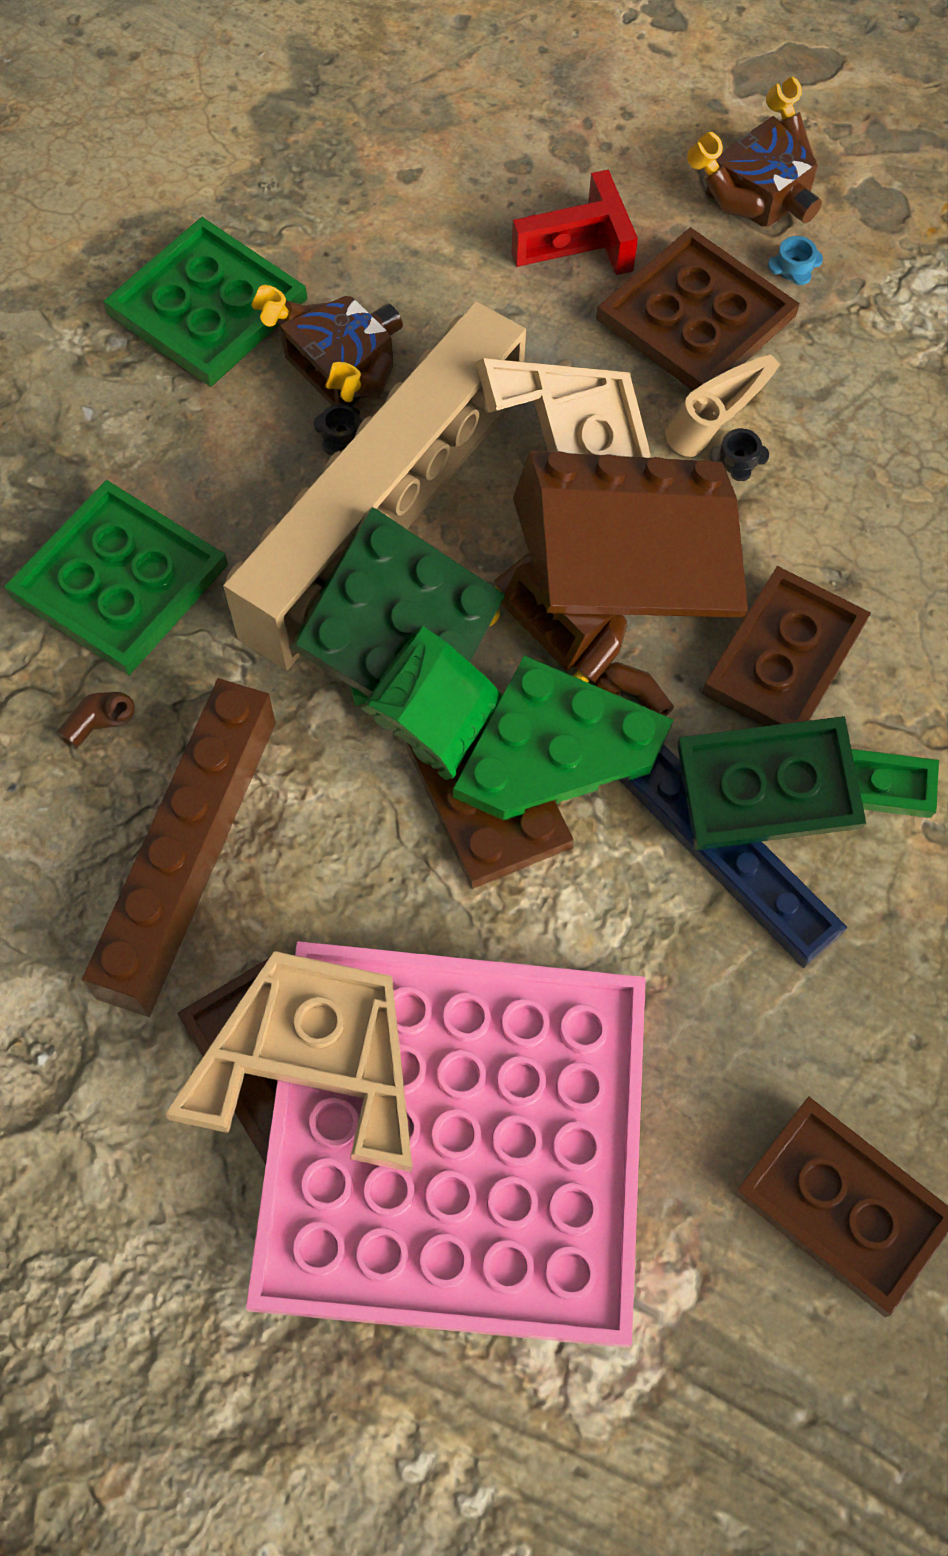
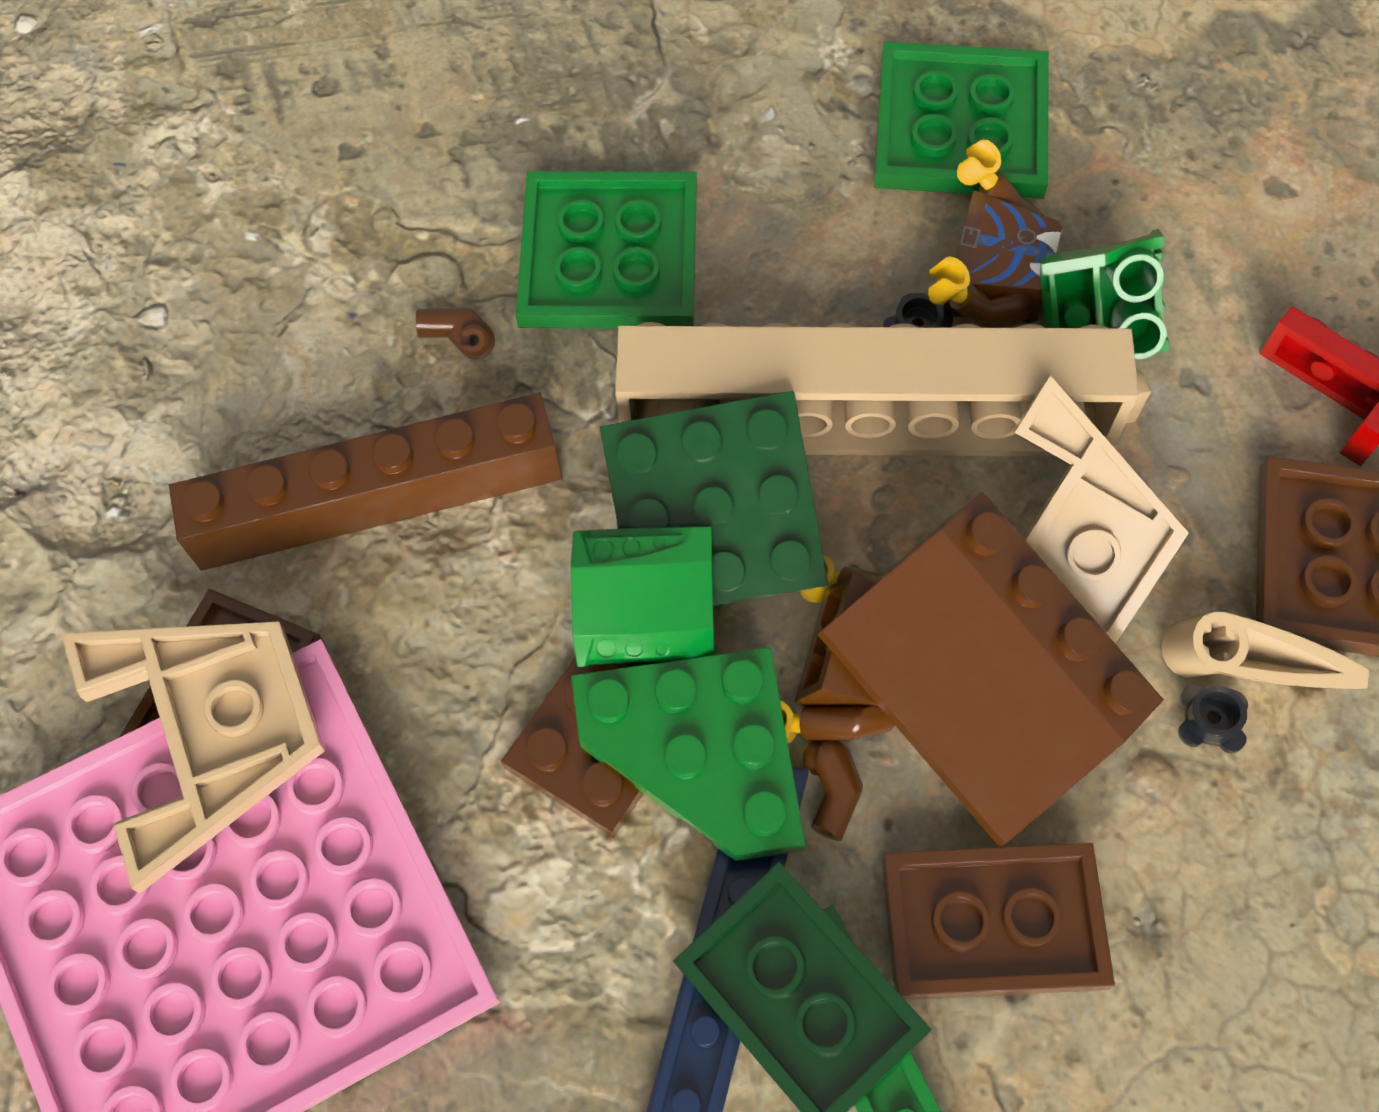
camera: 60 degrees right, 0 degrees up
(421, 303) = (1109, 287): none -> green slope

